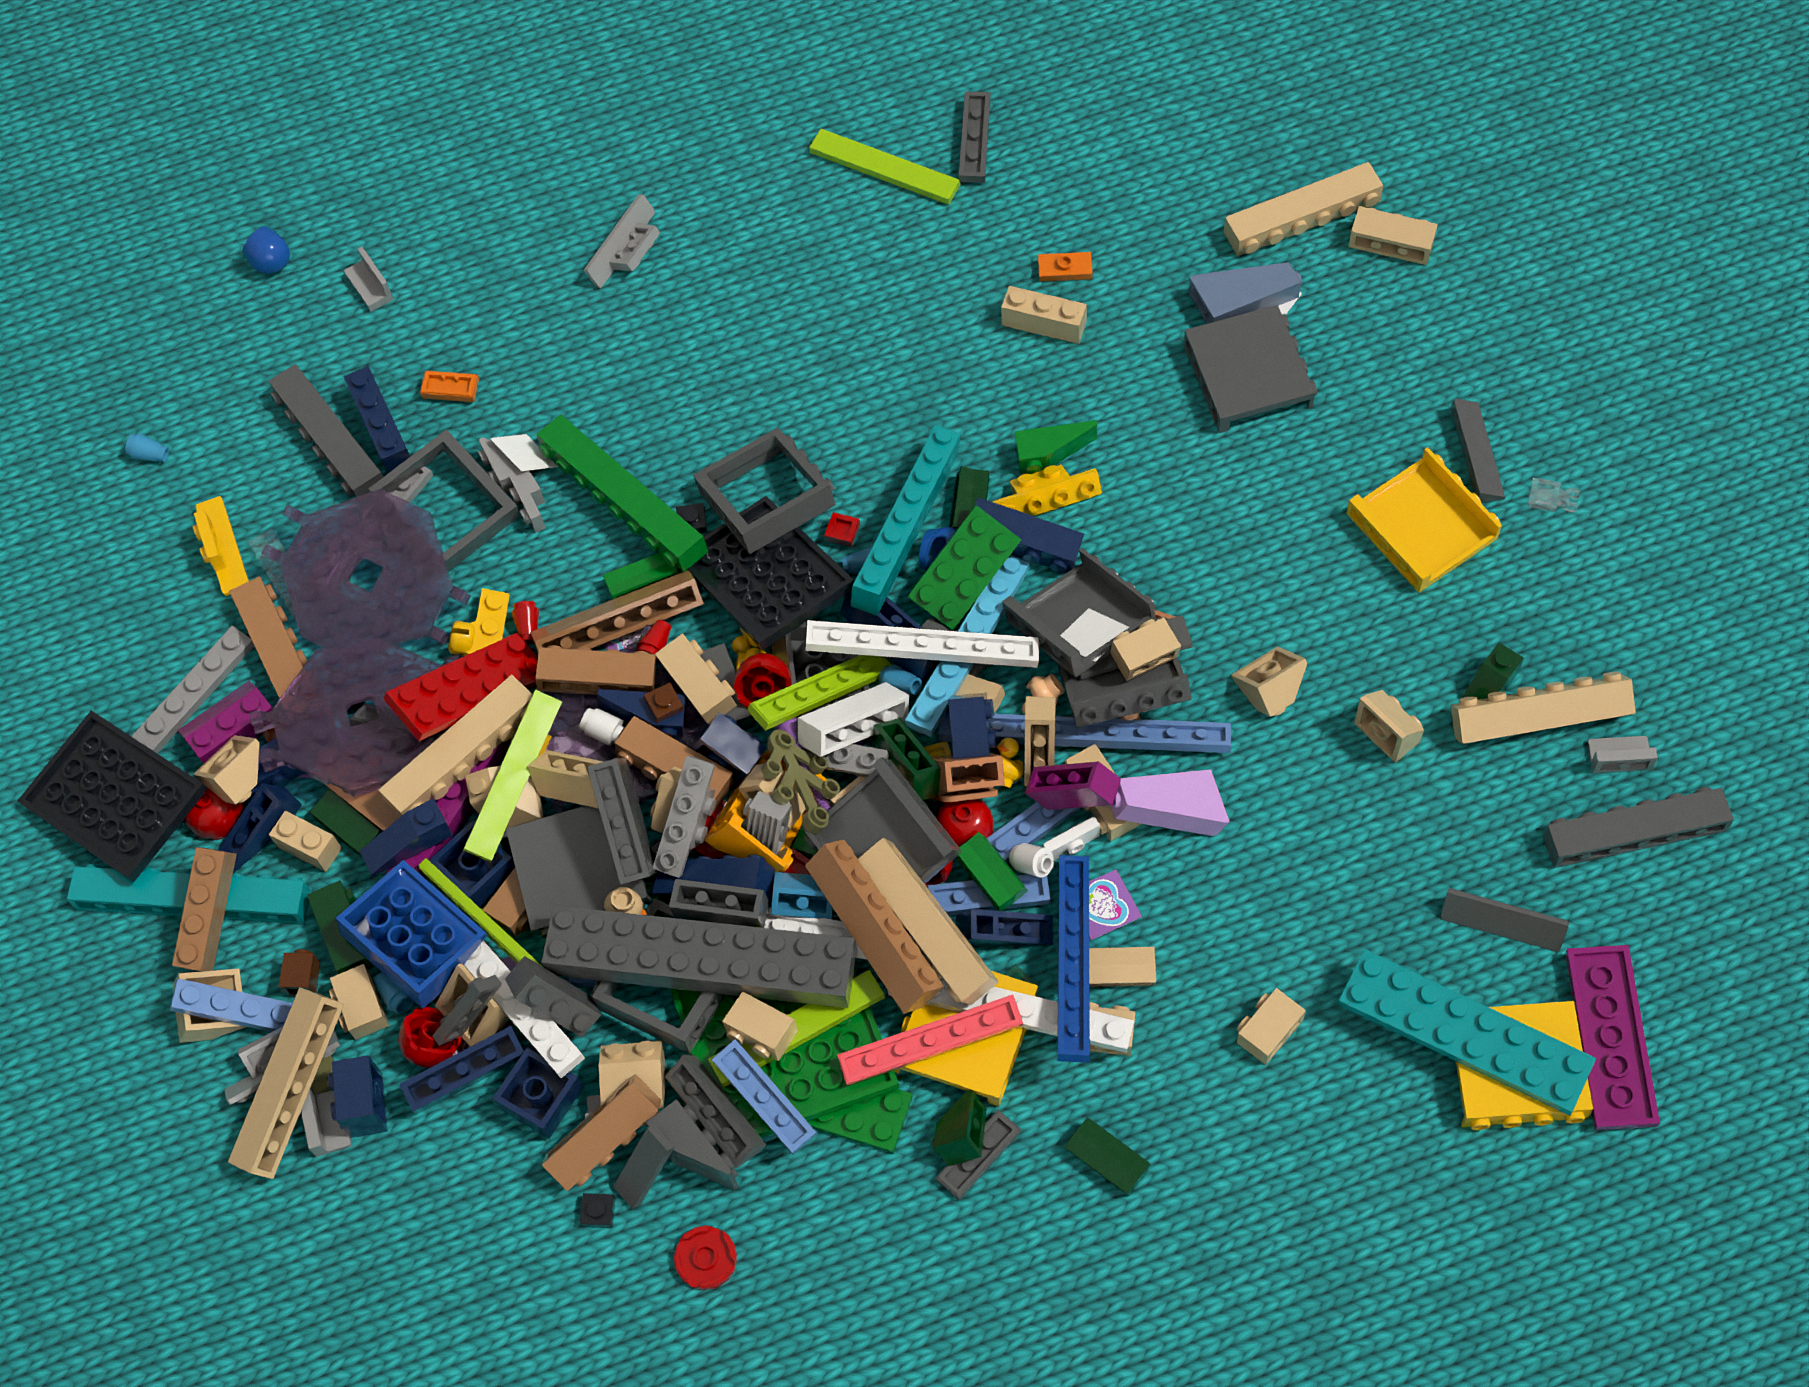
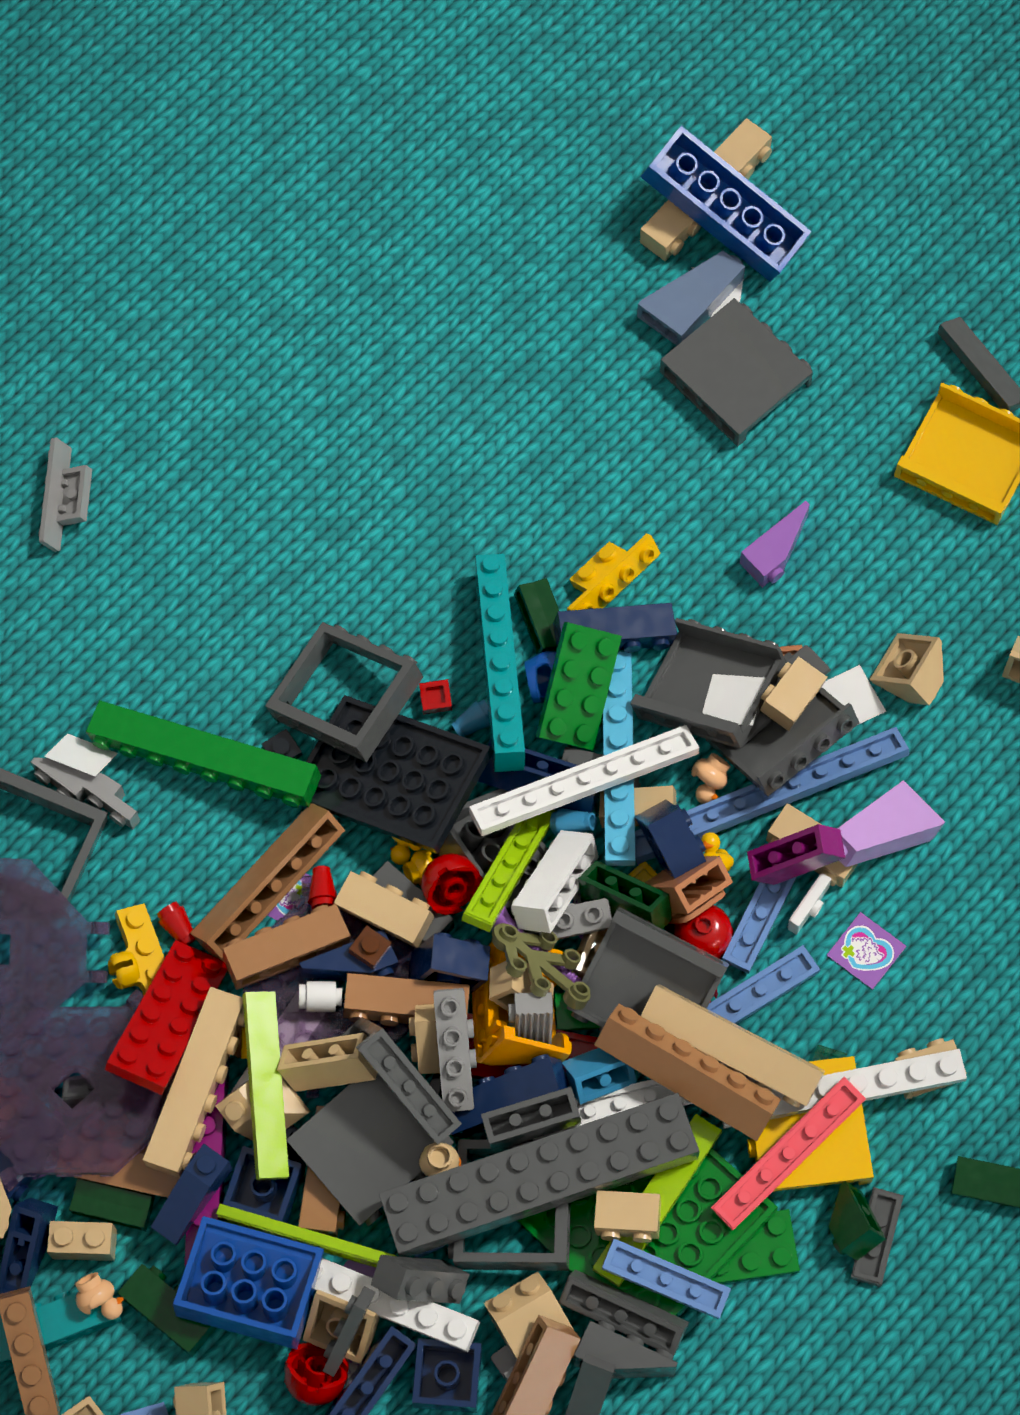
camera: 30 degrees left, 5 degrees up
(286, 883) = (95, 1293): none -> light nougat animal
(299, 970) = (150, 1371): reddish brown brick -> none
(362, 1006) = (220, 1364): tan brick -> none
(392, 995) = (251, 1348): dark azure cone -> none
(638, 575) = (263, 830): green piece -> none
(884, 166) = (277, 307): lime tile -> none
(974, 137) = (352, 241): dark grey plate -> none
(990, 872) = (756, 969): green piece -> none
(1005, 928) = (794, 1014): dark blue slope -> none
(1031, 859) = (786, 940): white brick -> none
(1039, 733) = (738, 821): tan brick -> none
(1044, 314) = (516, 398): tan brick -> none
(1051, 444) = (585, 532): green slope -> none
(1065, 266) = (508, 339): orange plate -> none
(1073, 960) = (876, 1016): blue plate -> none
(1122, 966) = (910, 1004): tan piece -> none
(1202, 528) = (769, 554): none -> medium lavender slope
(1208, 684) = (855, 689): none -> white sticker
(1308, 222) = (726, 204): none -> blue brick
(1392, 235) = (804, 181): tan brick -> none

